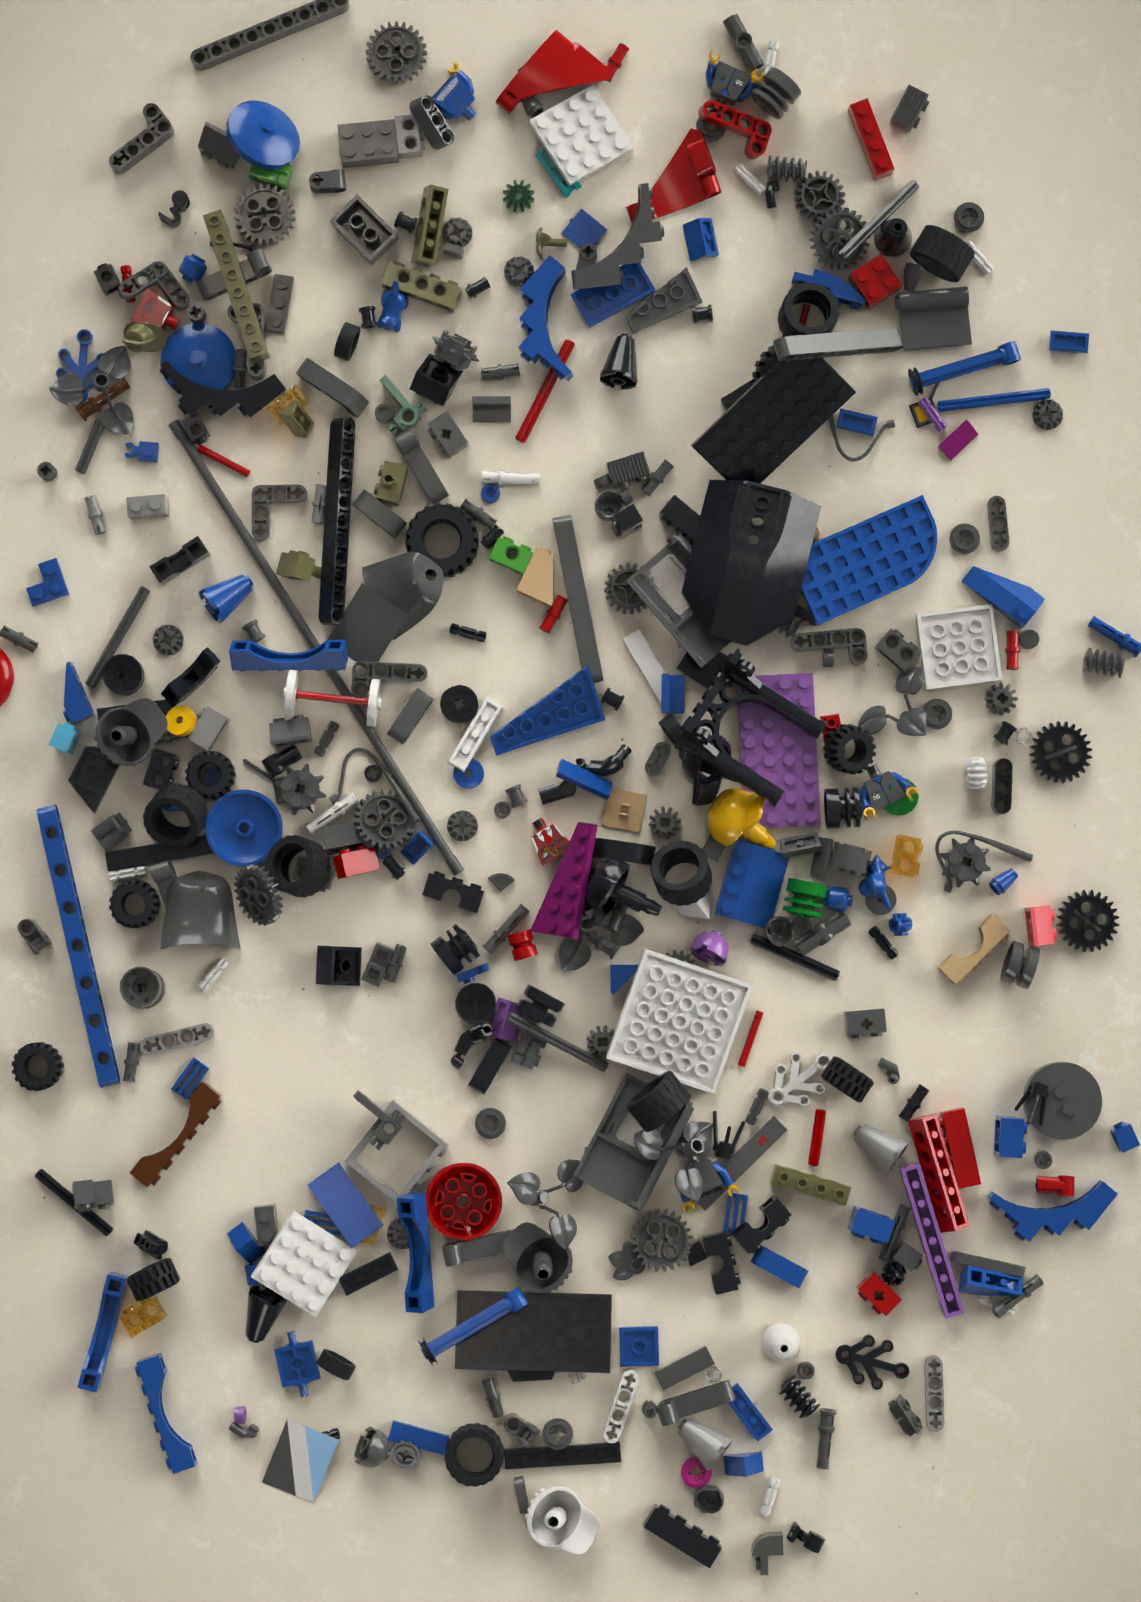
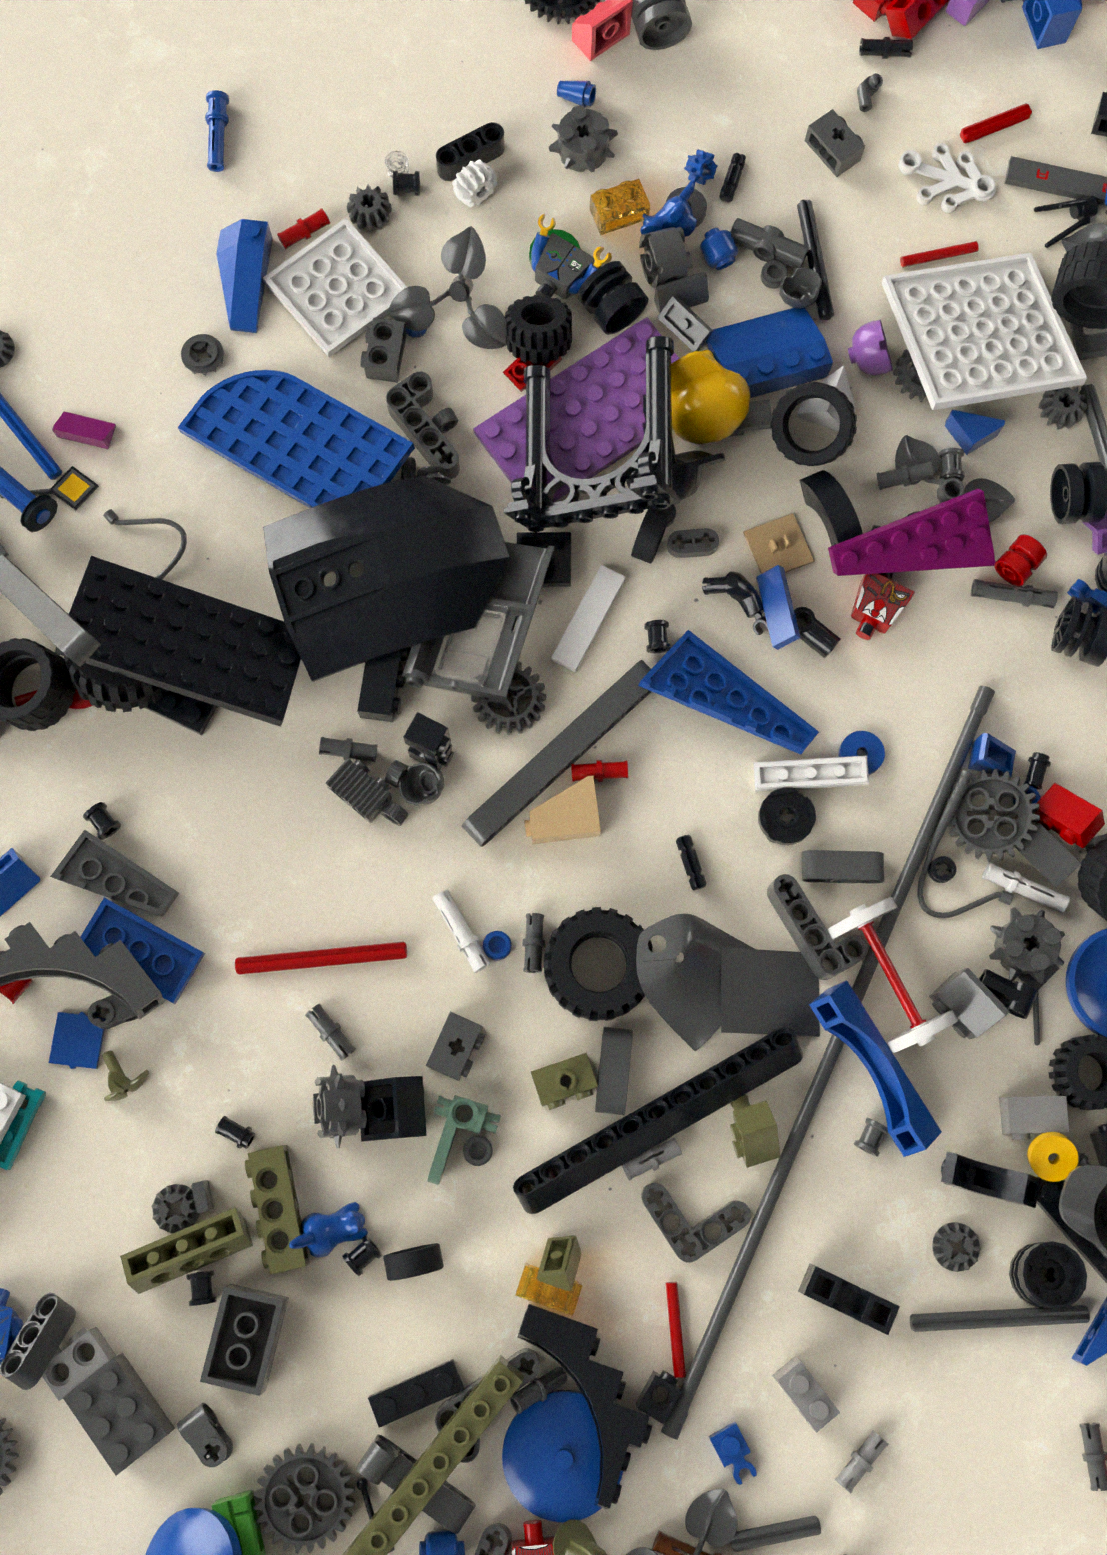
camera: 125 degrees left, 10 degrees down
(53, 585) = (990, 1457): blue plate -> none
(190, 312) = (502, 1513): dark grey bush -> none
(212, 776) = (1089, 1070): blue tile -> none
(226, 596) = (852, 1203): blue cone -> none
(326, 738) = (940, 955): dark grey axle -> none
(333, 387) = (486, 1243): dark grey beam -> none
(421, 466) = (519, 1053): dark grey beam -> none
(469, 831) = (929, 734): dark grey gear -> none
(470, 895) = (1019, 702): black arch -> none
(491, 408) = (387, 1012): dark grey panel -> none
(491, 537) = (553, 907): black pin -> none
(500, 551) = (565, 850): bright green brick -> none
(501, 880) = (960, 635): dark grey tile -> none
(502, 815) = (874, 694): dark grey axle -> none
(509, 271) = (188, 1104): dark grey gear -> none
(511, 199) = (71, 1147): clear green gear -> none
(516, 795) = (850, 677): dark grey bush -> none
(539, 292) = (195, 1046): blue arch -> none
(608, 887) = (890, 491): black piece -> none
(621, 364) = (227, 880): black cone -> none
(664, 829) = (772, 482): dark grey gear -> none
(672, 693) = (605, 569): blue panel -> none
(757, 1106) = (1009, 203): dark grey axle -> none
(804, 898) = (745, 277): green wheel -> none
(810, 1184) = (1053, 96): olive brick -> none
(847, 1079) = (916, 115): black tyre -> none
(856, 422) = (132, 550): blue plate -> none
(880, 1146) = (960, 44): light grey cone -> none
(932, 414) = (70, 474): medium lavender axle -> none
(945, 717) = (429, 257): dark grey gear -> none
(992, 933) = (648, 69): tan arch -> none
(1004, 537) = (160, 339): dark grey beam -> none
(1006, 848) = (622, 146): dark grey piece -> none
(1029, 639) = (279, 219): dark grey tile -> none
(1066, 768) = (389, 113): black gear -> none
(1103, 661) = (256, 124): dark grey piece -> none

